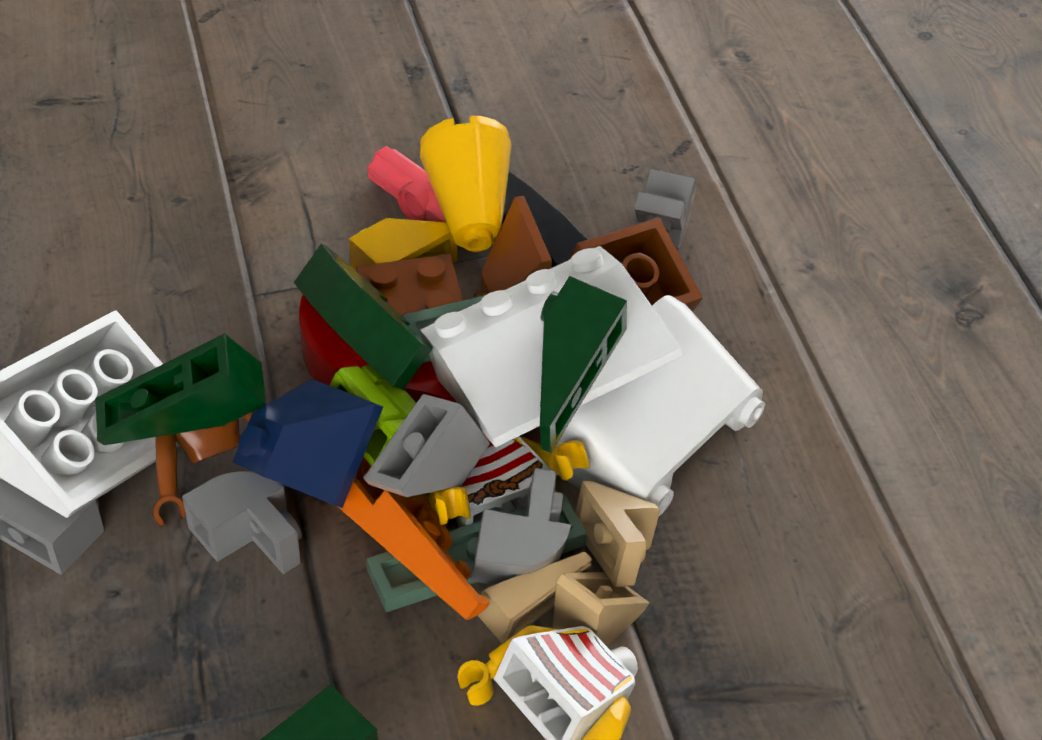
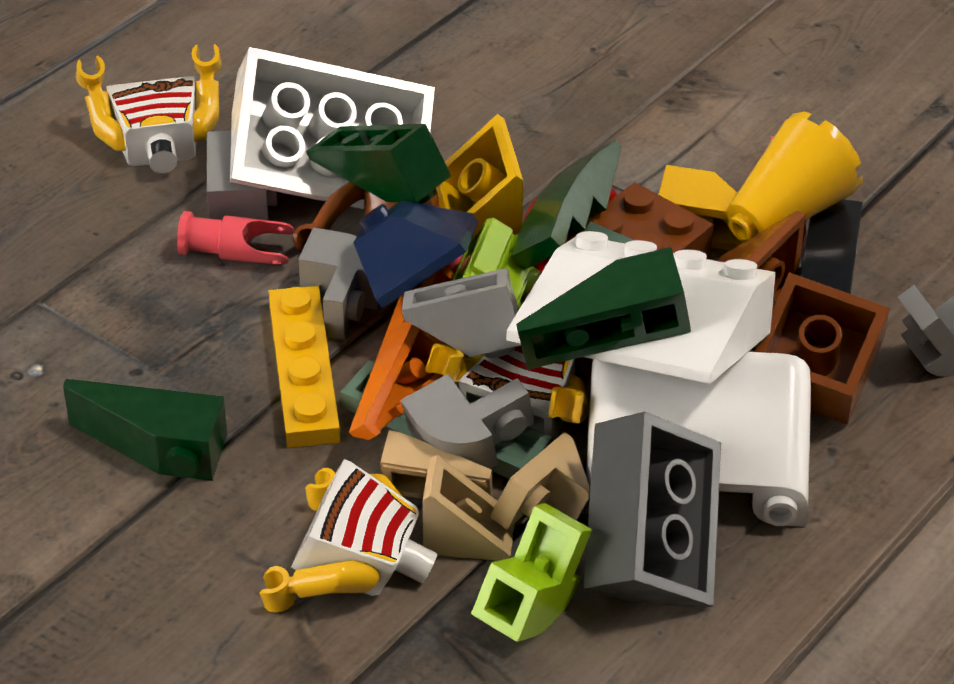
camera: 55 degrees right, 5 degrees down
(103, 567) = (229, 237): none -> coral piece
(279, 338) = (485, 178): none -> yellow slope
(311, 609) = (303, 367): none -> yellow plate
(705, 599) = (537, 584): none -> lime brick
(717, 486) = (653, 512): none -> dark grey slope

